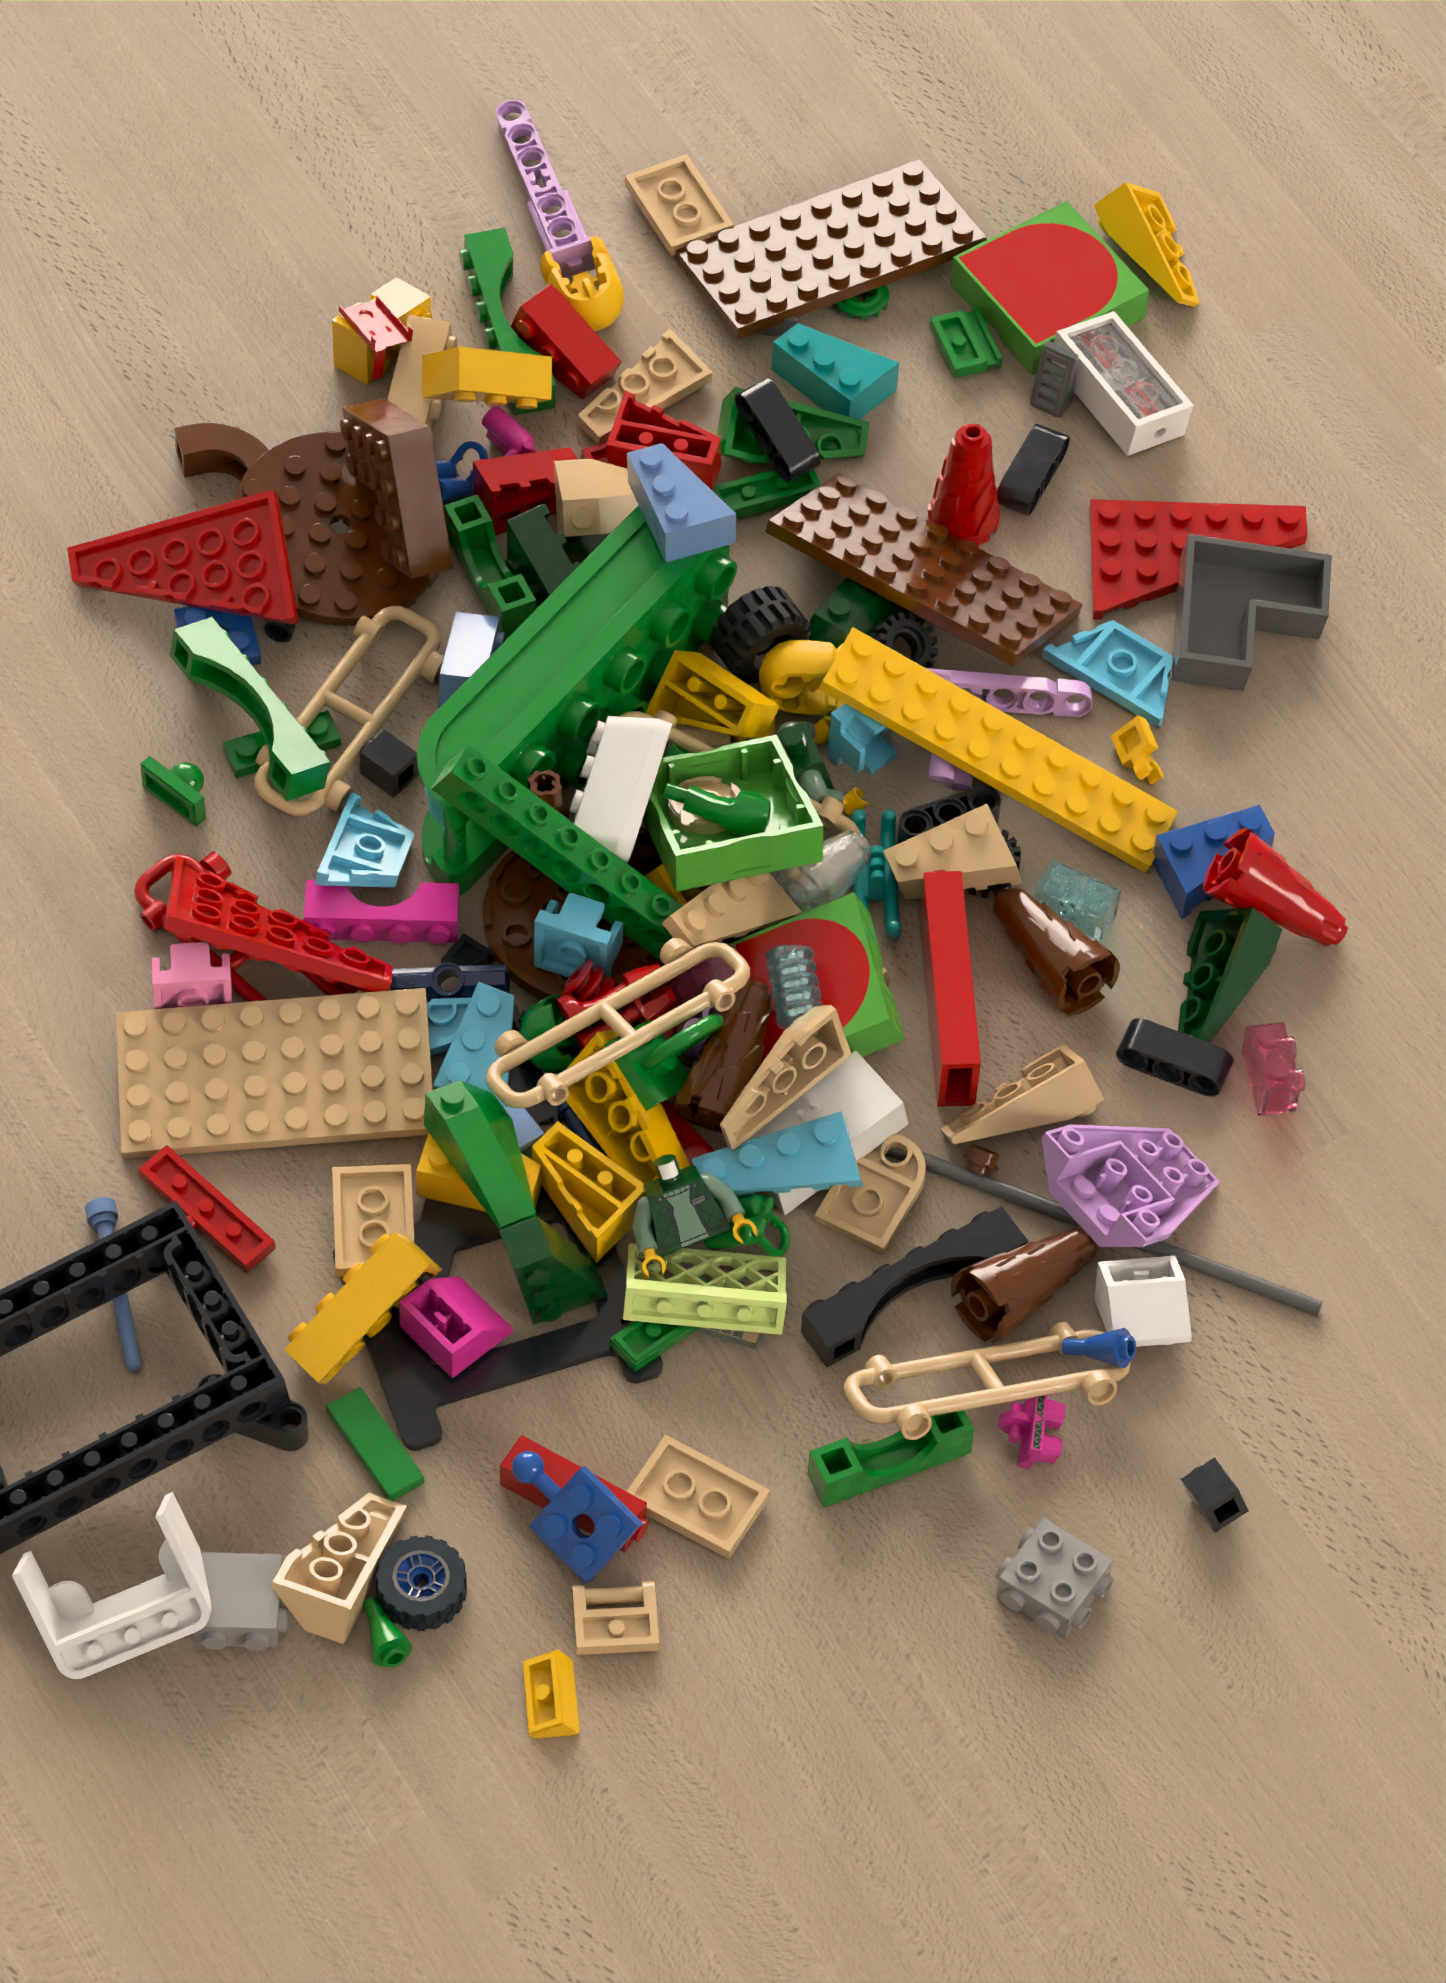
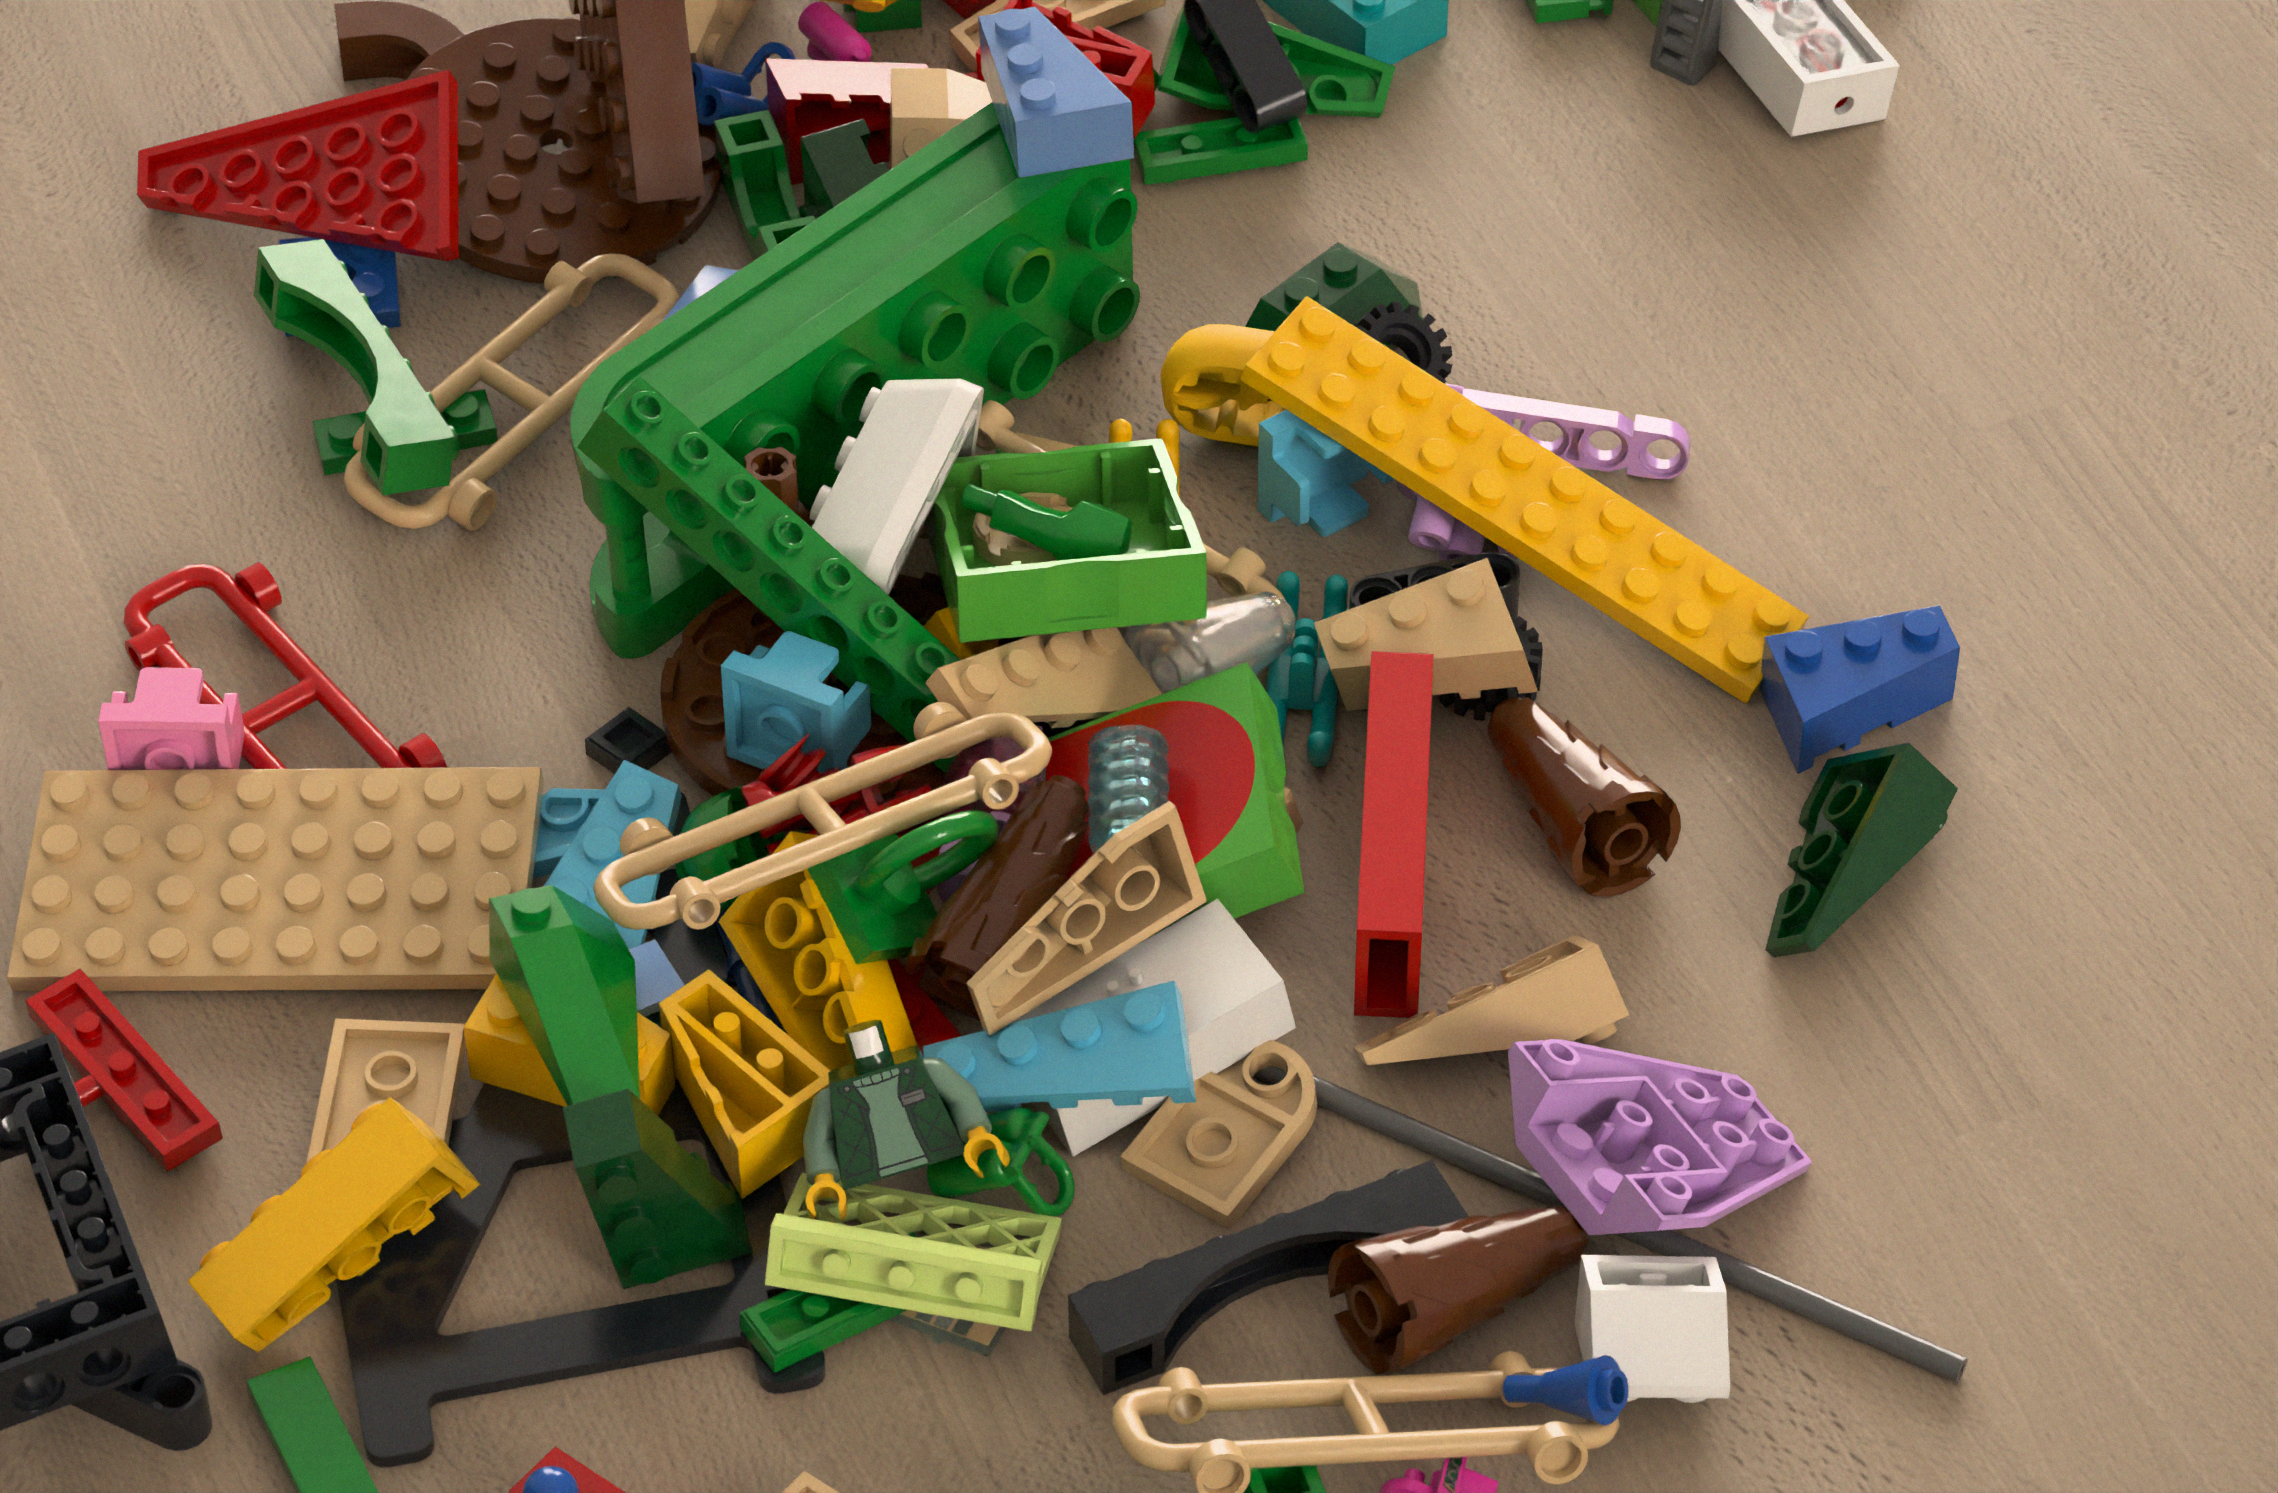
camera: 10 degrees right, 10 degrees down
(176, 787) = (224, 475): green tile -> none
(230, 918) = (261, 644): red wing -> none
(279, 631) = (437, 278): black hinge -> none
(364, 849) = (492, 575): medium azure wing -> none
(388, 763) = (549, 466): black brick -> none
(424, 917) = (572, 676): dark pink arch -> none
(433, 978) = (567, 760): dark blue piece -> none
(451, 1322) = (477, 1264): dark pink slope -> none
(711, 698) = (1073, 394): yellow wedge -> none
(754, 627) = (1156, 304): black tyre -> none
(808, 767) = (1213, 496): torso -> none
(924, 568) = (1449, 254): reddish brown plate -> none
(966, 489) = (1527, 154): red cone -> none
(981, 1160) = (1412, 1095): reddish brown plate -> none
(1032, 469) = (1638, 143): black beam -> none
(1078, 898) = (1630, 720): clear light blue brick -> none
(1118, 667) = (1739, 413): medium azure wing -> none
(1134, 745) = (1749, 522): yellow plate -> none
(1141, 542) = (1814, 258): red wing -> none
(1174, 1057) = (1758, 967): black beam -> none
(1241, 588) = (1943, 311): dark grey piece -> none
(1262, 879) = (1929, 699): red cone -> none
(1272, 1068) = (1919, 993): clear pink brick -> none

